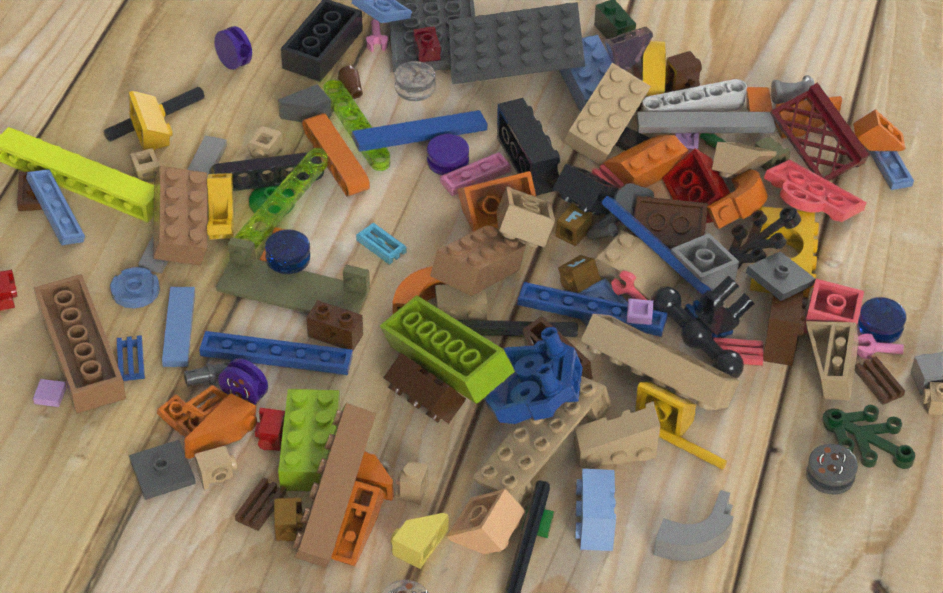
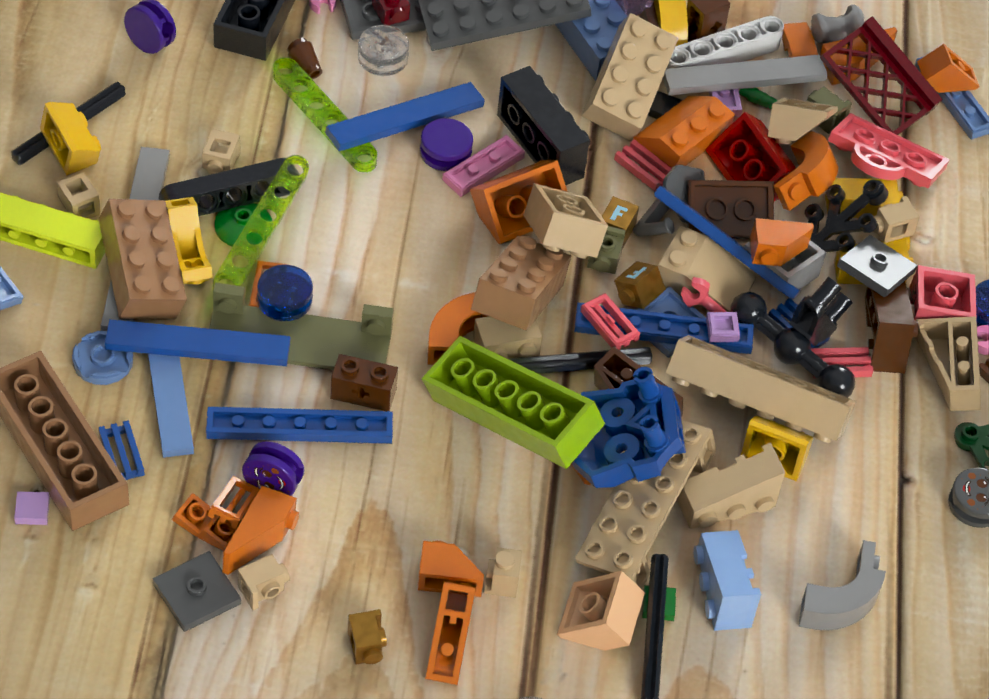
camera: 15 degrees left, 5 degrees up
(206, 374) = (224, 461): dark grey pin -> none
(210, 282) = (197, 342): none -> blue tile
(253, 498) = (335, 599): reddish brown tile -> none
(270, 429) = (318, 524): red brick -> none
(304, 104) = (258, 95): dark grey slope -> none
(305, 433) = (370, 533): lime brick -> none
(334, 486) = (419, 590): medium nougat brick -> none
(341, 160) = (325, 172): orange beam -> none
(378, 245) = (388, 270): medium azure tile -> none
(419, 538) = (527, 642): light yellow slope -> none
(424, 389) = (490, 453): reddish brown wedge -> none
(559, 244) = (609, 252): none -> olive brick
(562, 308) = (606, 324): none -> coral tile
(584, 189) = (626, 176): black brick -> none
(692, 448) = (819, 491): yellow bar -> none
(698, 247) = (778, 241): none -> orange slope
(804, 242) = (896, 220): none -> tan brick

